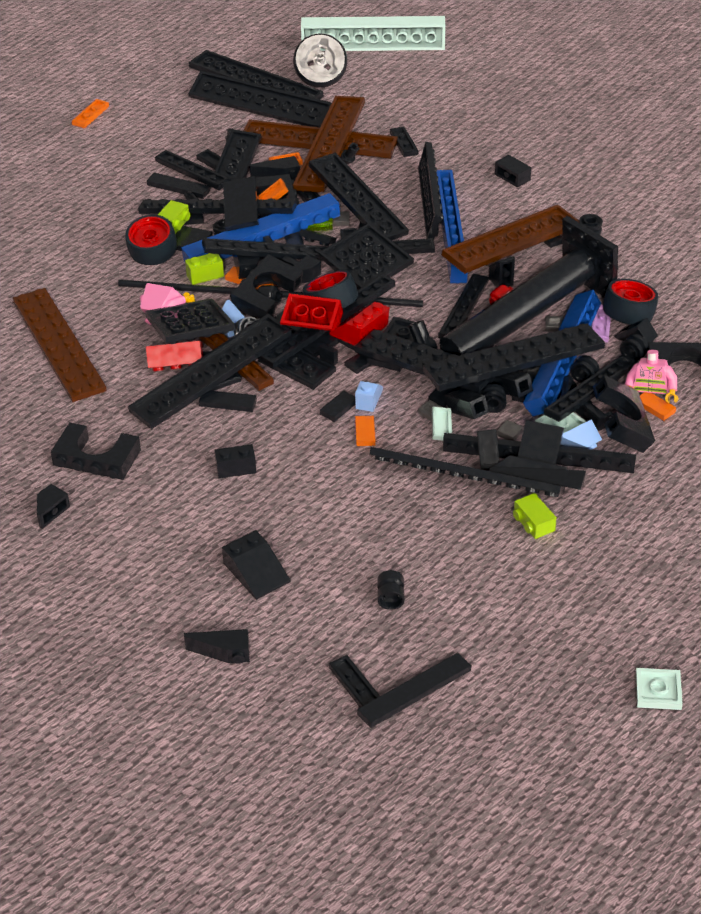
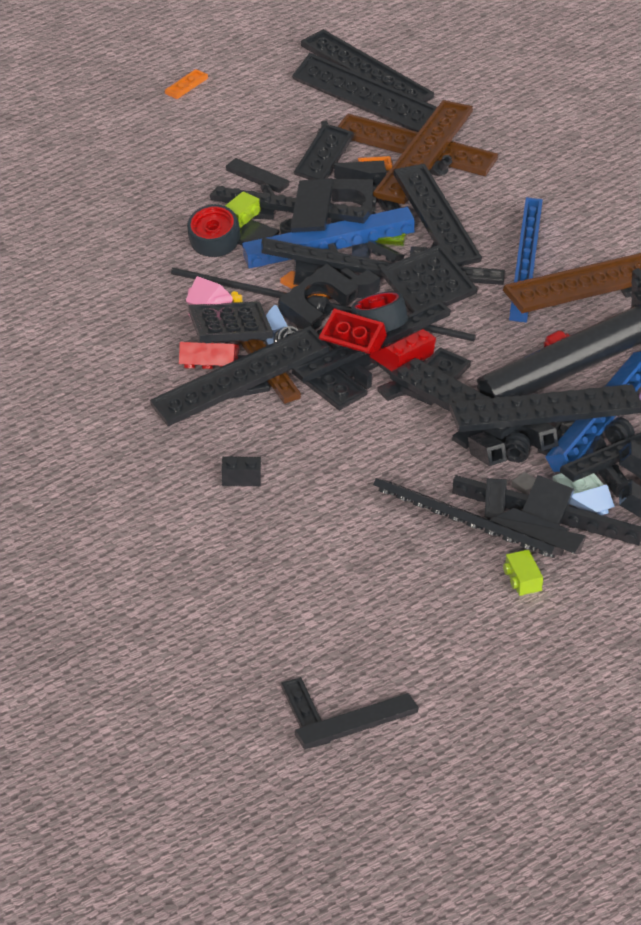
camera: 10 degrees right, 0 degrees up
(50, 504) = (51, 486): black slope -> none
(59, 345) = (98, 326): reddish brown plate -> none
(113, 463) = (121, 455): black arch -> none
(191, 169) = (274, 160): black tile -> none
(204, 268) = (260, 268): lime brick -> none
(209, 158) = (295, 149): black tile -> none
(225, 646) = (183, 648): black slope -> none
(228, 401) = (251, 409): black tile -> none
(254, 564) = (234, 576): black slope -> none
(275, 191) = (352, 196): orange tile -> none
(334, 56) = (428, 45): flat silver wheel -> none
(338, 406) = (359, 431): black tile -> none
(342, 220) = (417, 236): flat silver tile -> none
(365, 430) = (379, 460): orange tile -> none
(367, 396) = (391, 425): light blue slope -> none
(380, 32) = (503, 34): light aqua brick -> none
(390, 589) = (359, 622): black wheel -> none
(404, 141) = (505, 159): black tile -> none
(421, 335) = (461, 372): black piece -> none
(426, 409) = (451, 450): flat silver tile -> none
(429, 191) = (514, 219): black plate -> none
(441, 422) = (457, 463): light aqua tile -> none
(465, 303) = (519, 343): black tile -> none
(502, 272) = (565, 317): black slope -> none
(513, 171) = (609, 208): black brick -> none
(553, 323) = (603, 378): flat silver tile -> none
(658, 688) = (595, 760): light aqua plate -> none

